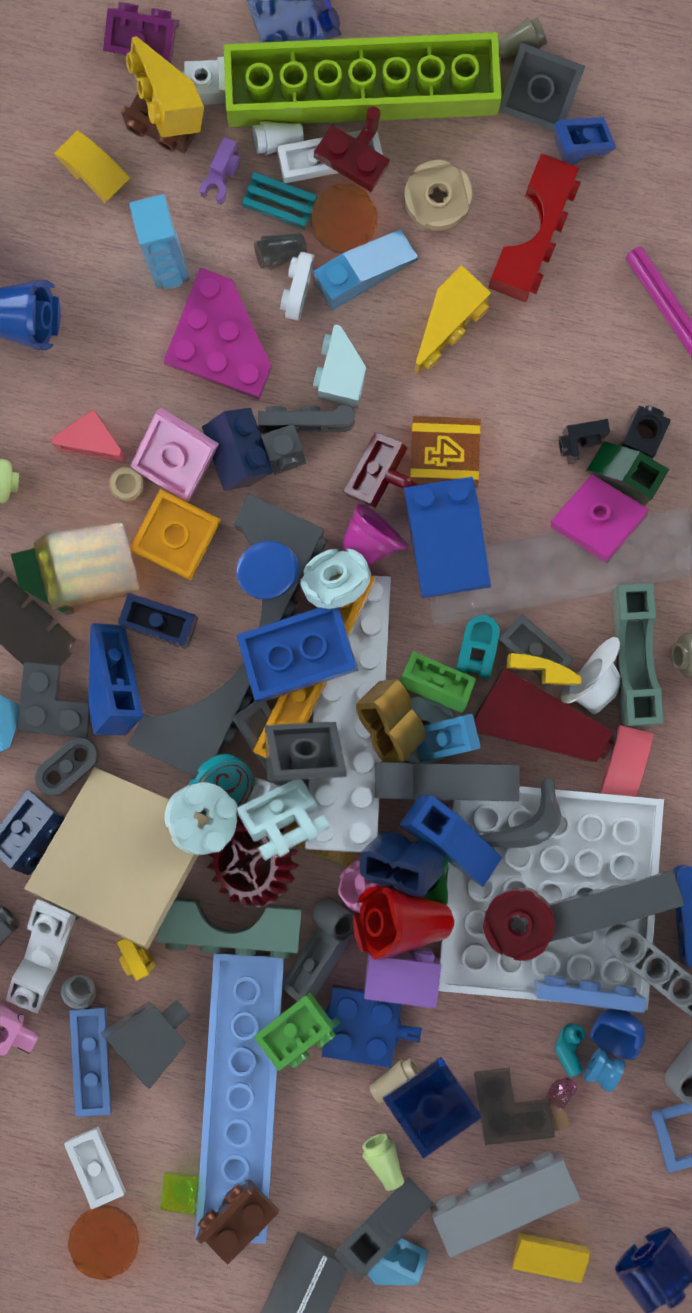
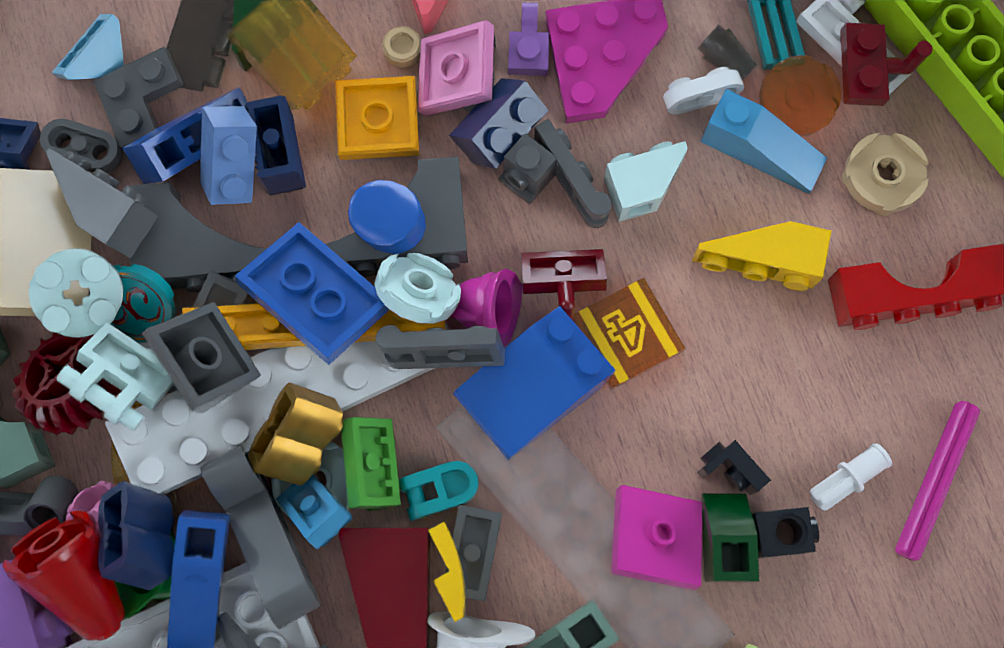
camera: 60 degrees right, 10 degrees down
(140, 771) = (99, 207): none -> slope
(149, 659) = (227, 154): none -> medium blue brick
(184, 392) = (528, 48): none -> medium lavender plate
(389, 586) = (441, 347): none -> dark grey plate
(633, 363) = (850, 477): none -> white axle

